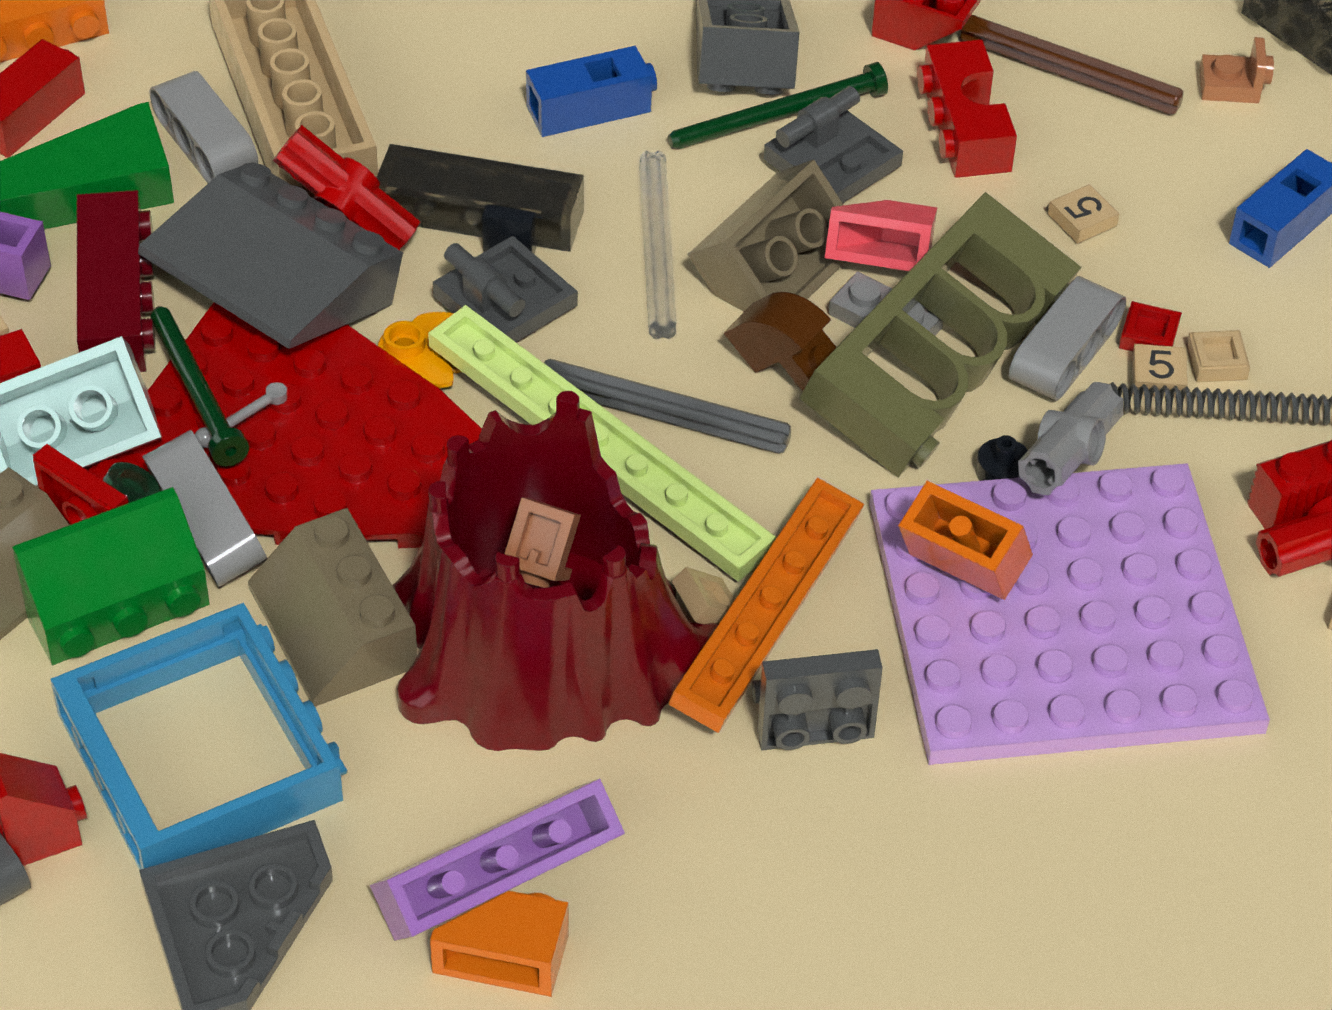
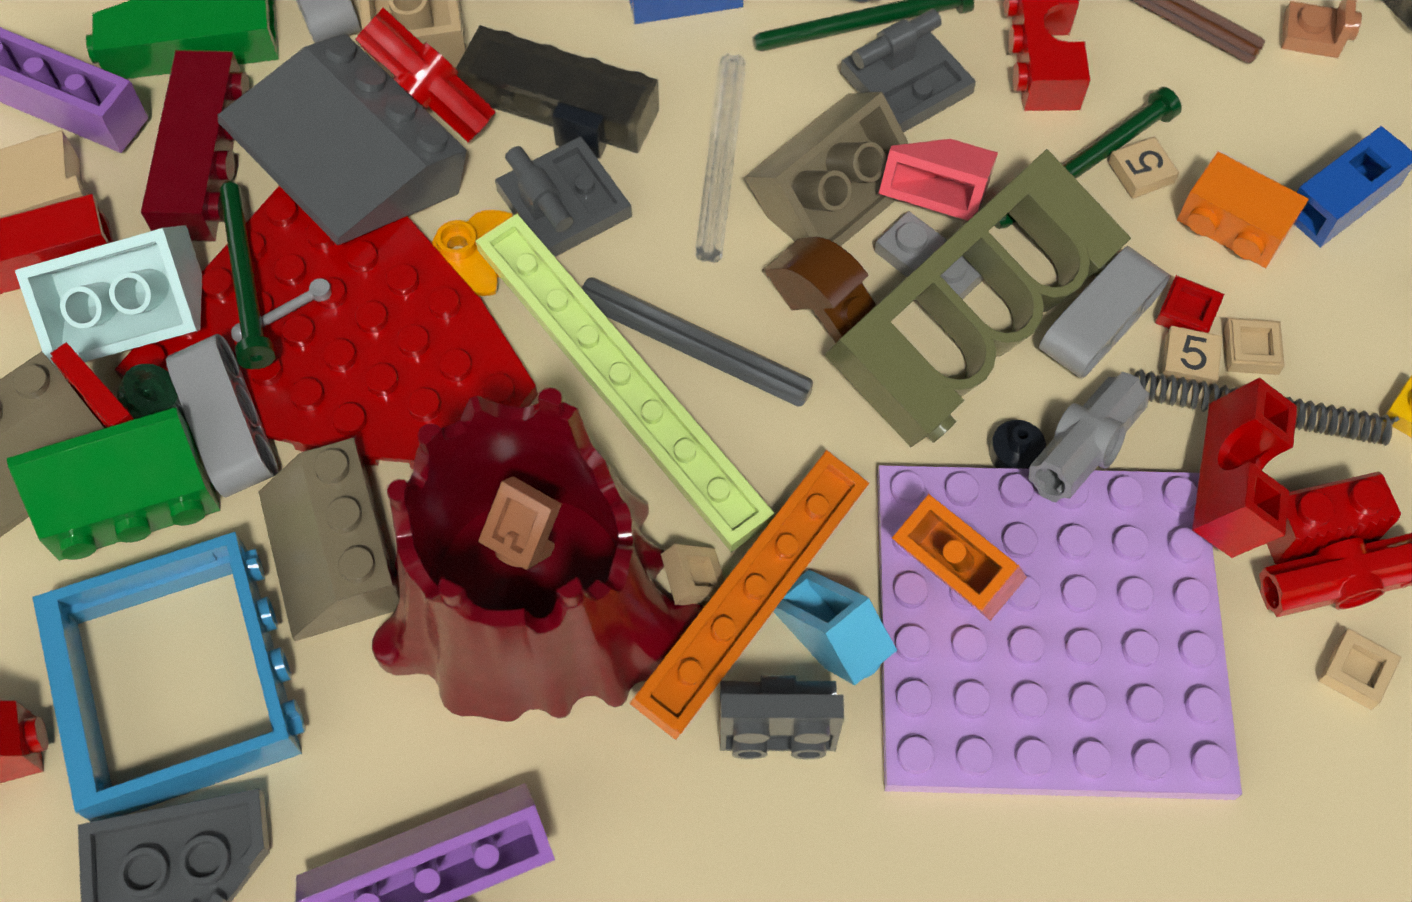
camera: 10 degrees right, 15 degrees up
(855, 620) = (836, 626): none -> medium azure slope
(1092, 157) = (1162, 106): none -> dark green bar
(1185, 237) = (1241, 209): none -> orange brick
(1219, 464) = (1236, 500): none -> red arch

